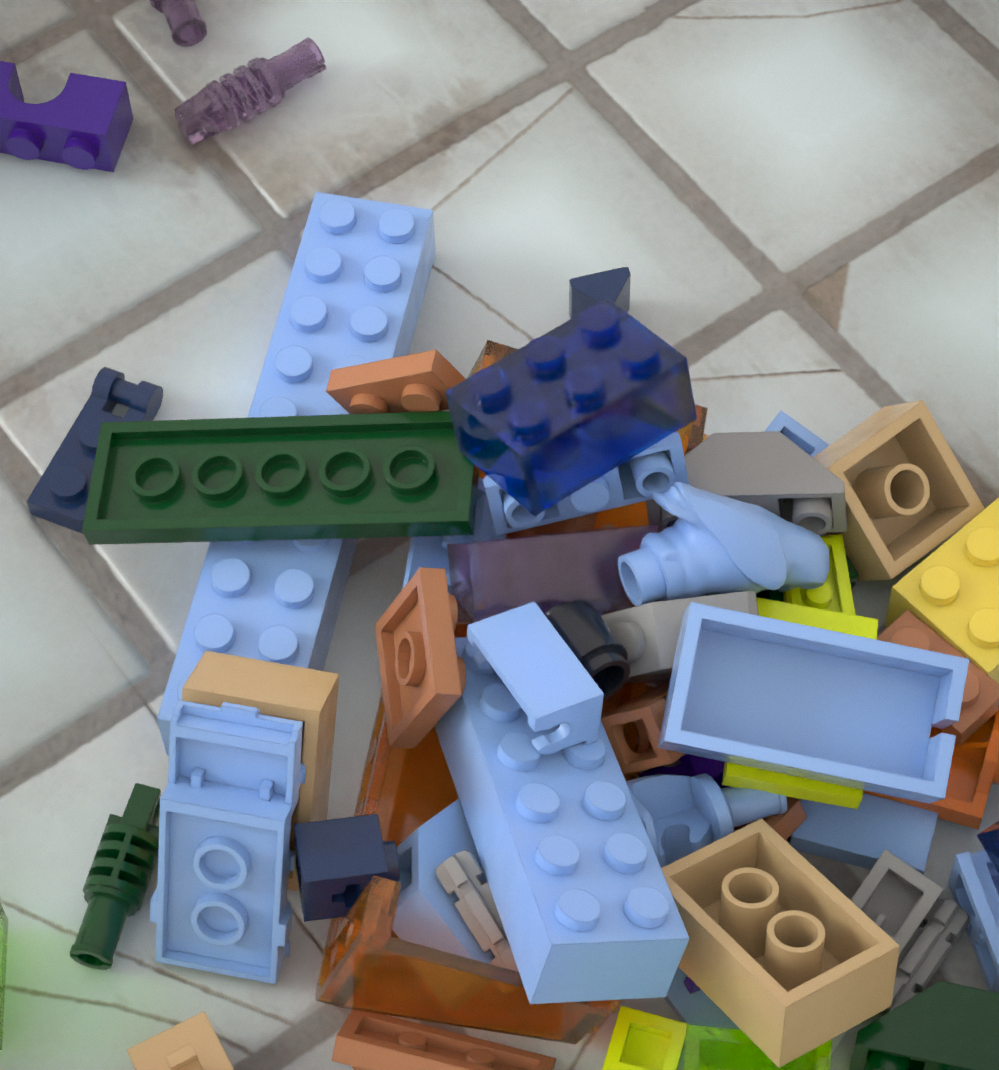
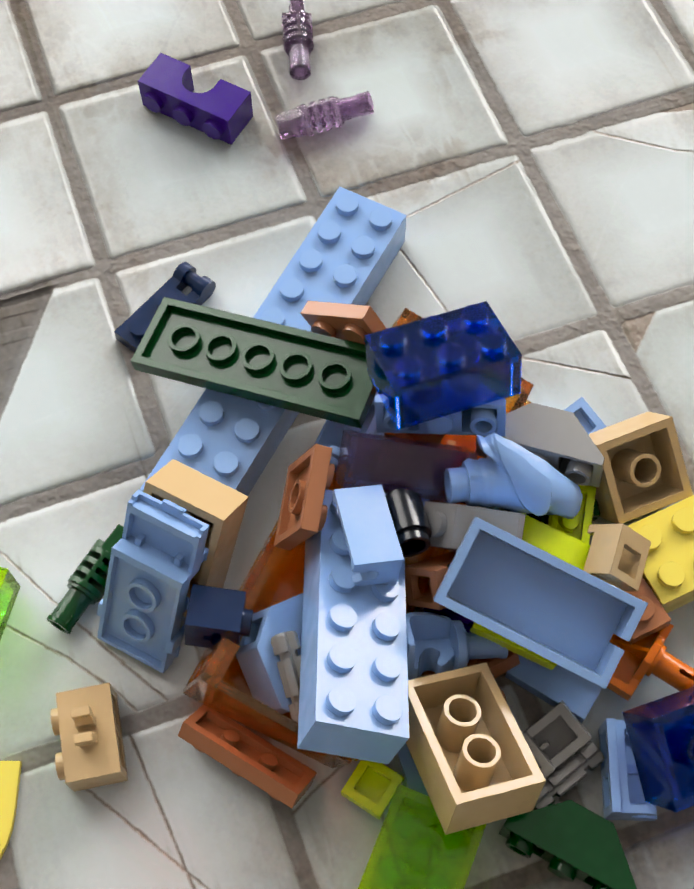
camera: 15 degrees right, 5 degrees up
(596, 287) = (496, 292): dark blue slope -> none
(904, 609) = (617, 555): none -> tan brick

